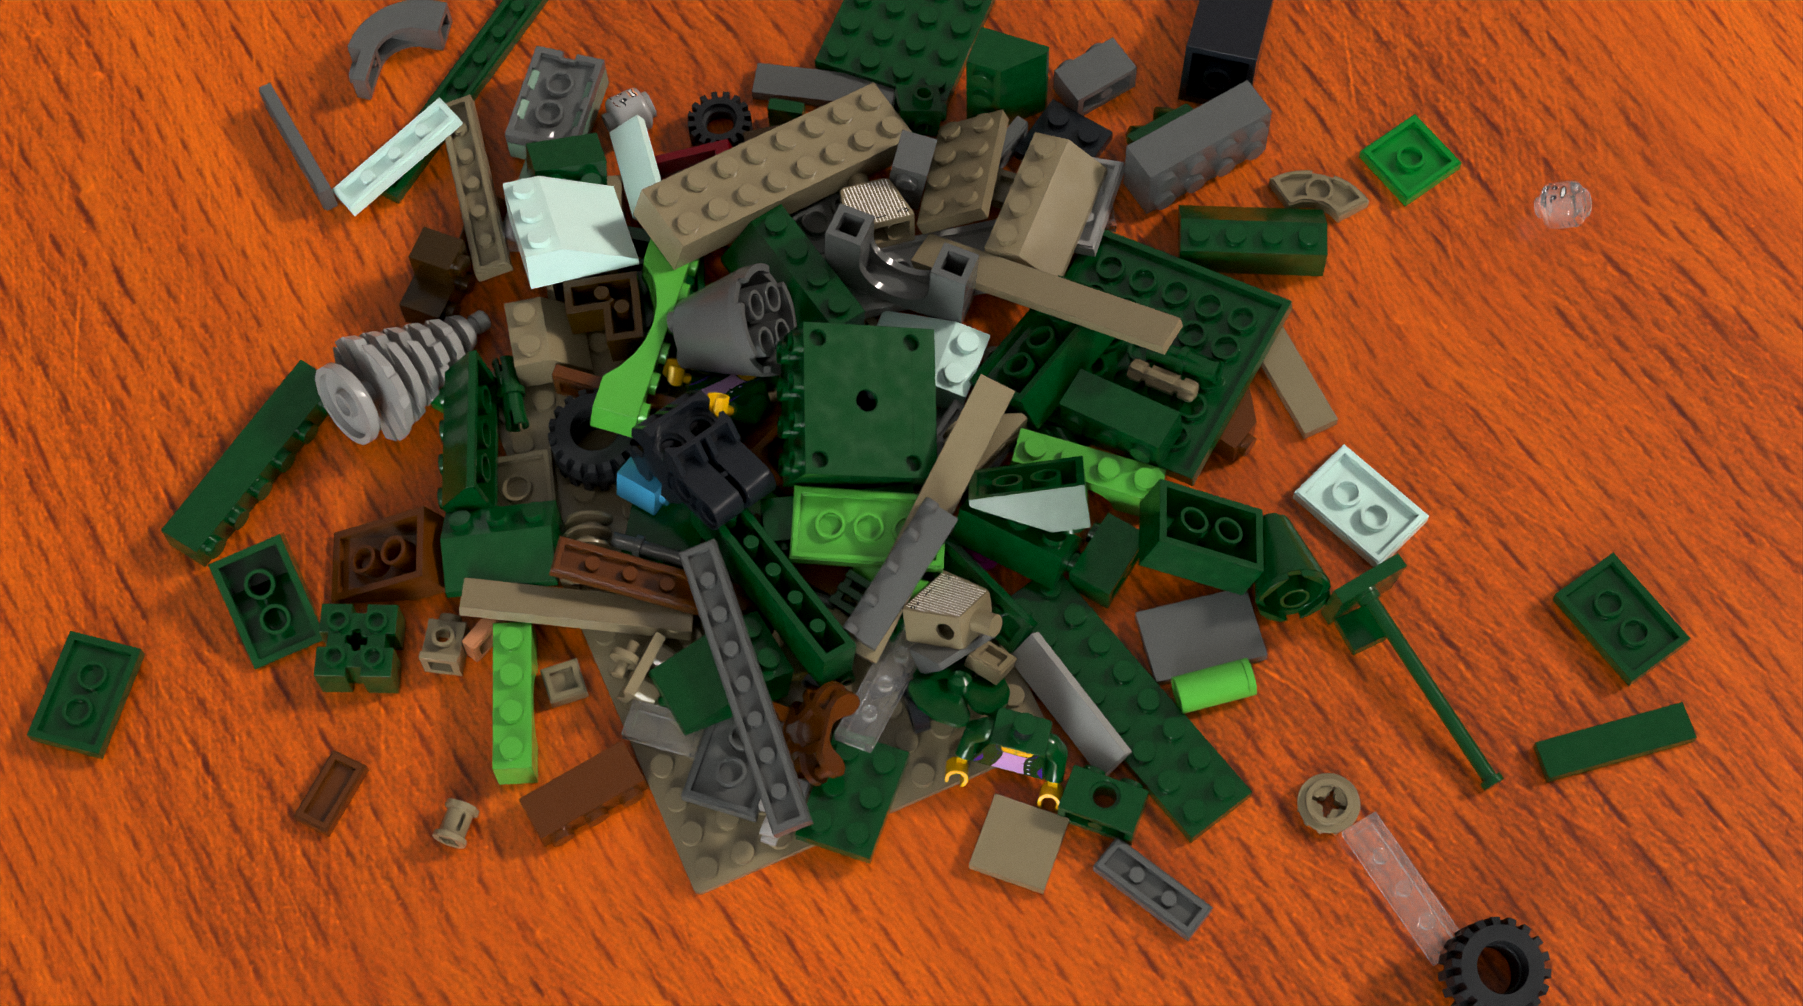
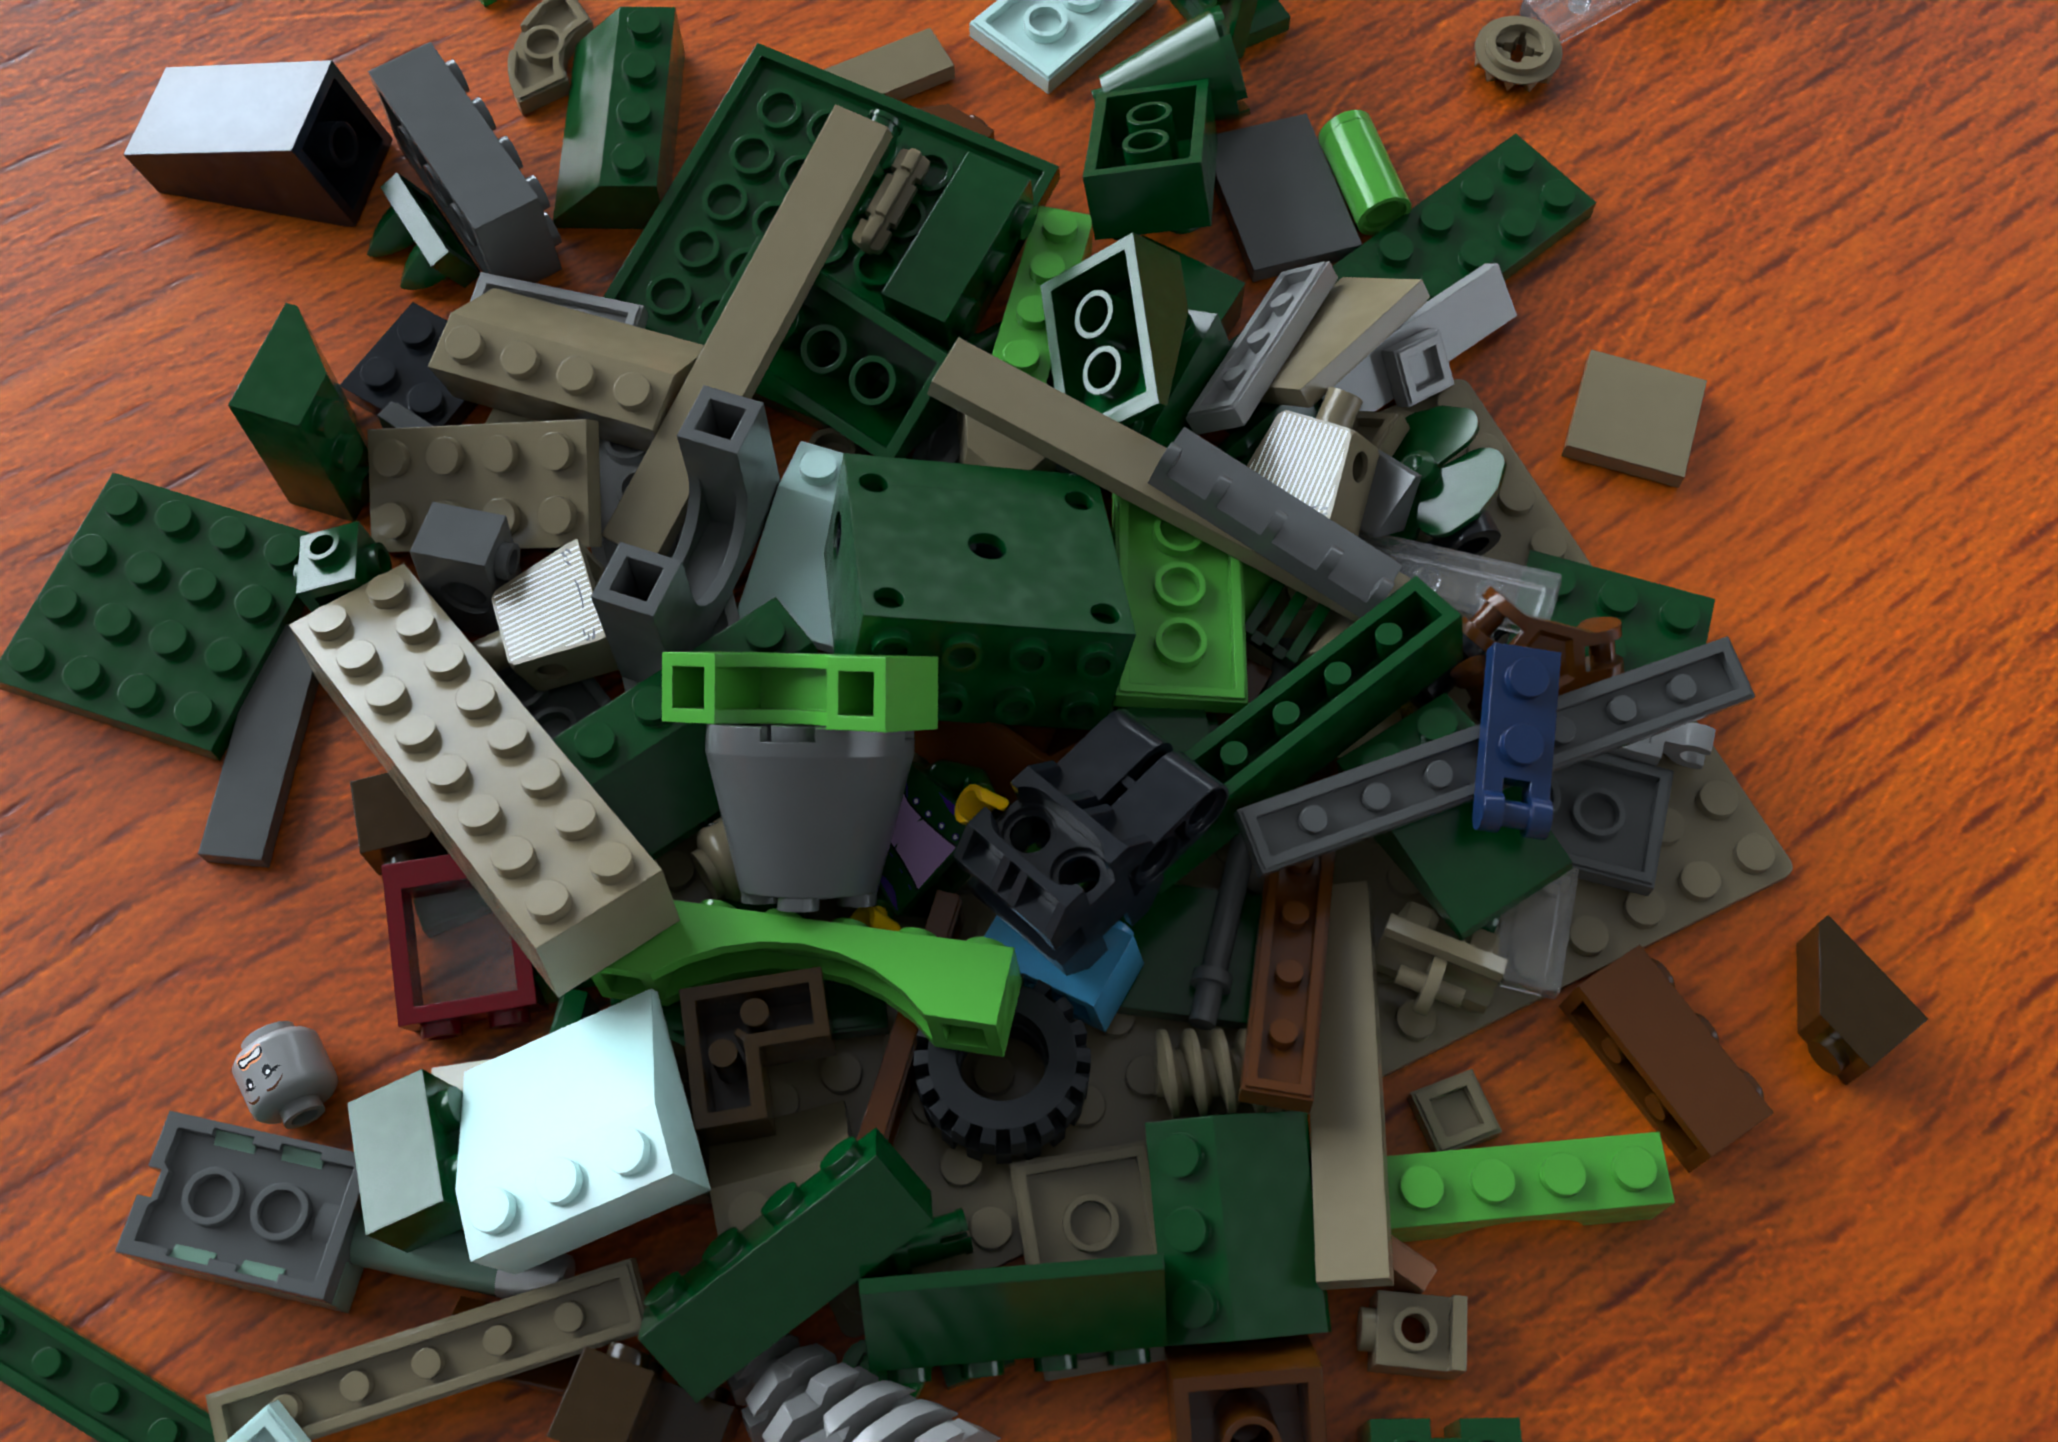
camera: 95 degrees left, 0 degrees up
(455, 823) = (1755, 1280): dark tan bush -> none
(494, 326) = (784, 1263): none -> dark green brick
(605, 899) = (1848, 1004): none -> dark brown slope
(634, 158) = (422, 1033): light aqua tile -> none
(715, 109) = (307, 882): black tyre -> none
(745, 686) = (1517, 740): none -> dark blue plate
(761, 324) = (801, 689): none -> bright green arch
(783, 111) = (321, 792): dark green tile -> none
(1014, 744) = (1510, 401): dark green torso -> none
(1050, 699) = (1418, 367): none -> light grey tile
(1051, 595) = (1261, 348): none -> light grey tile
(1052, 631) = (1342, 334): none -> dark tan tile
(1094, 77) = (301, 284): dark grey brick -> none
(1115, 821) = (1566, 304): dark green brick -> none
(1152, 888) = (1671, 256): dark grey tile -> none

